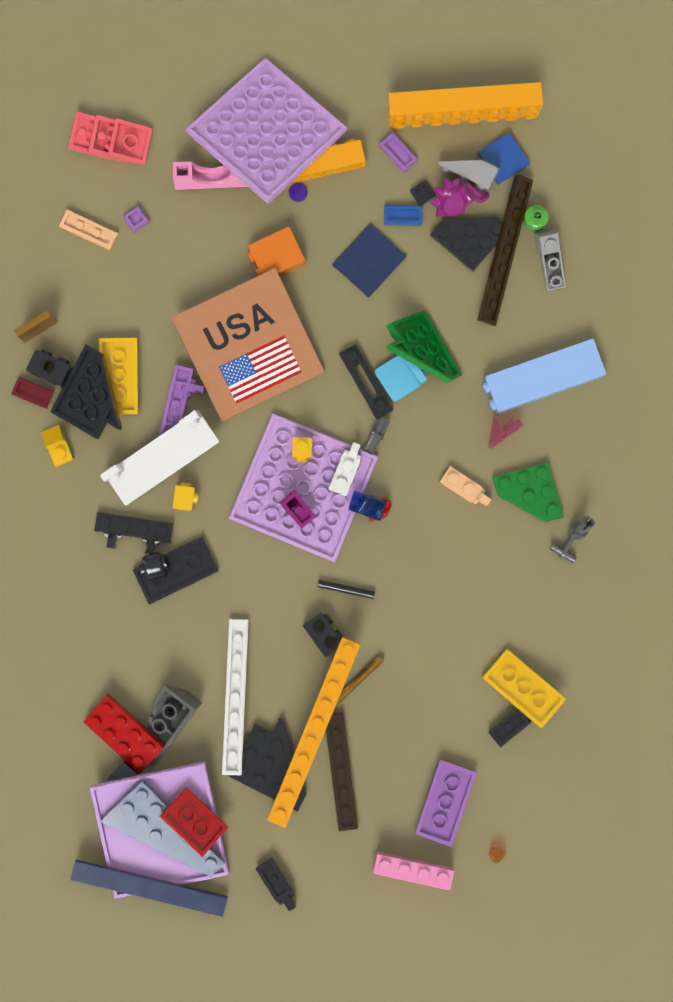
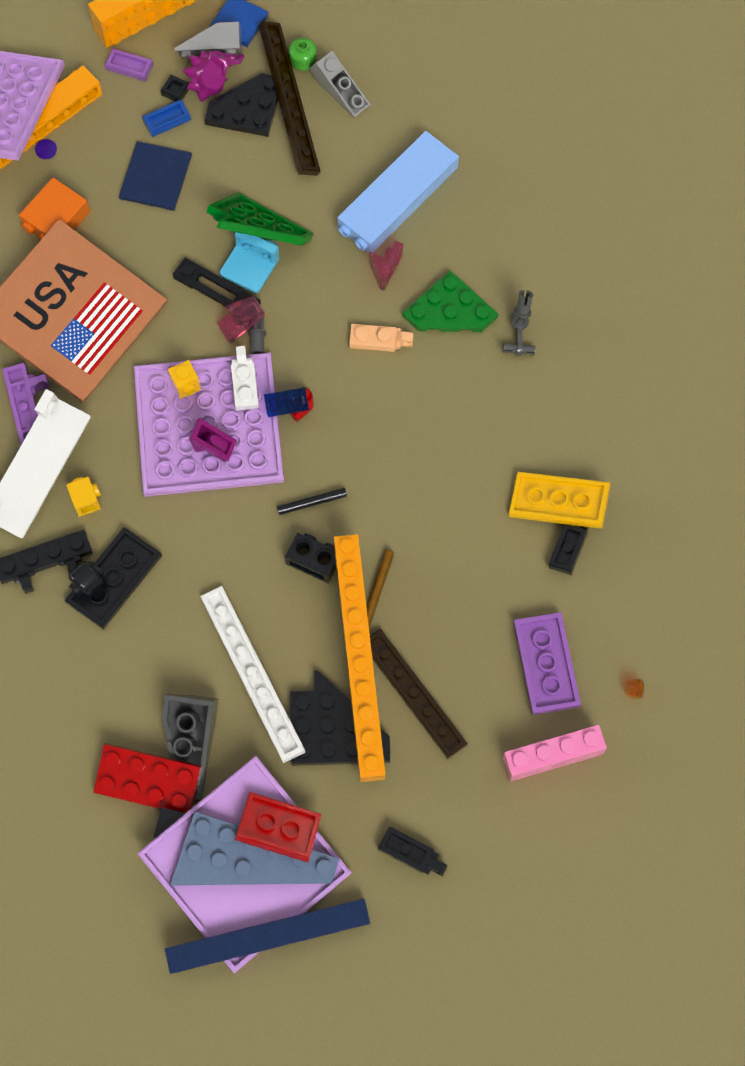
camera: 25 degrees left, 15 degrees down
(370, 418) = (240, 318): none -> clear pink slope

